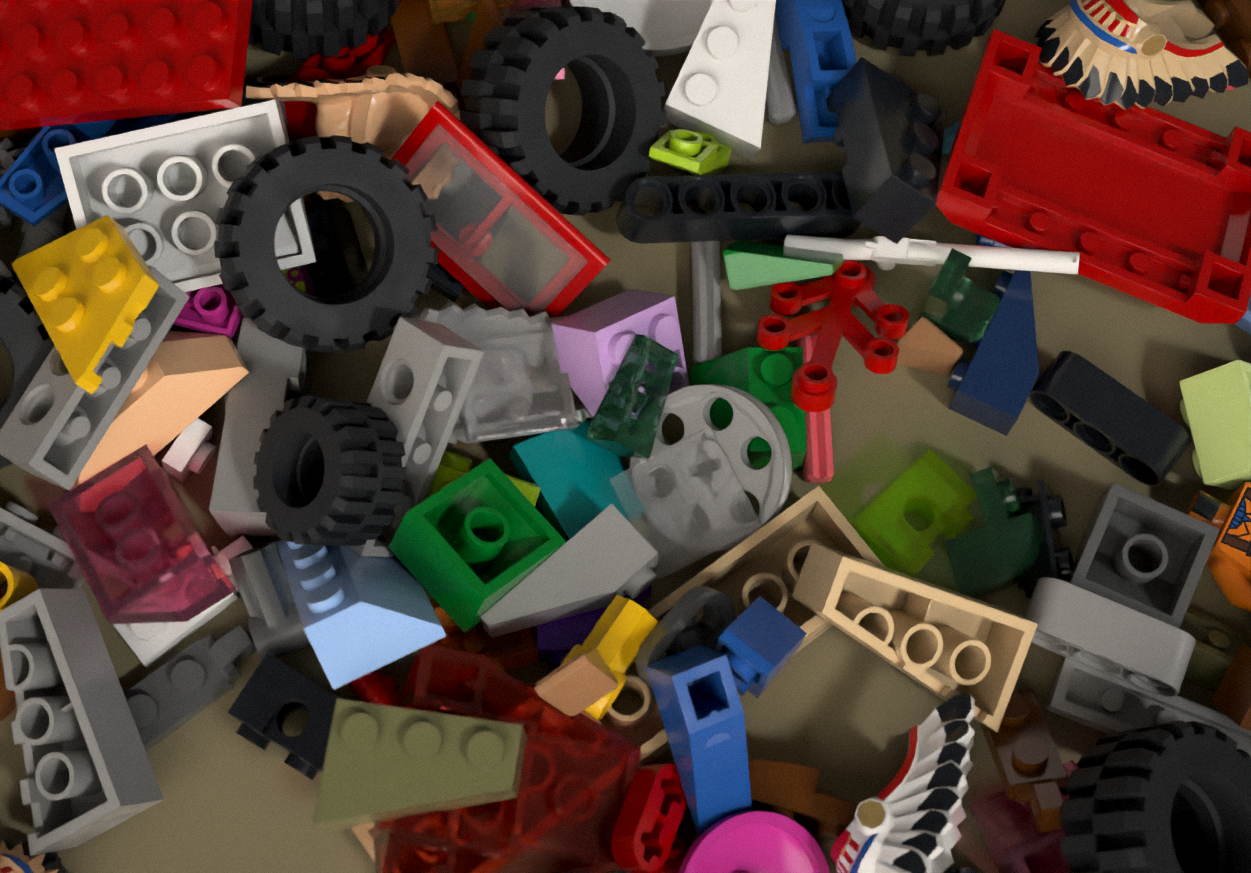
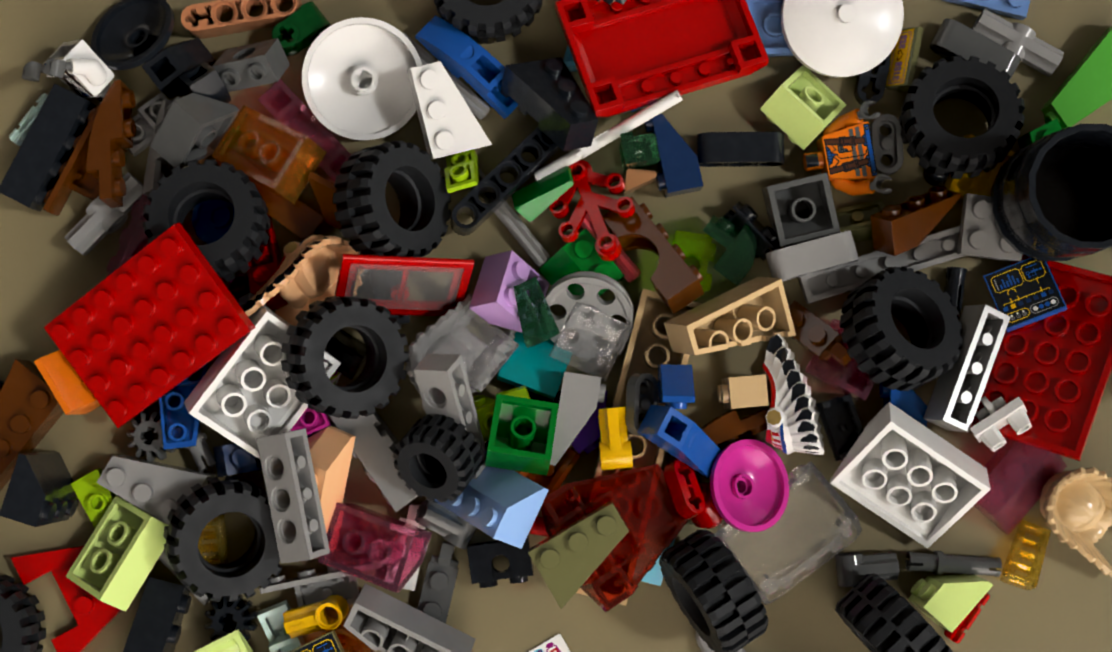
camera: 35 degrees left, 15 degrees up
(87, 293) = (264, 465): yellow wing -> none
(190, 451) = (354, 487): white plate -> none
(577, 683) = (614, 462): medium nougat slope -> none
(853, 751) = (743, 392): none -> tan brick
(875, 495) = (673, 279): none -> reddish brown arch

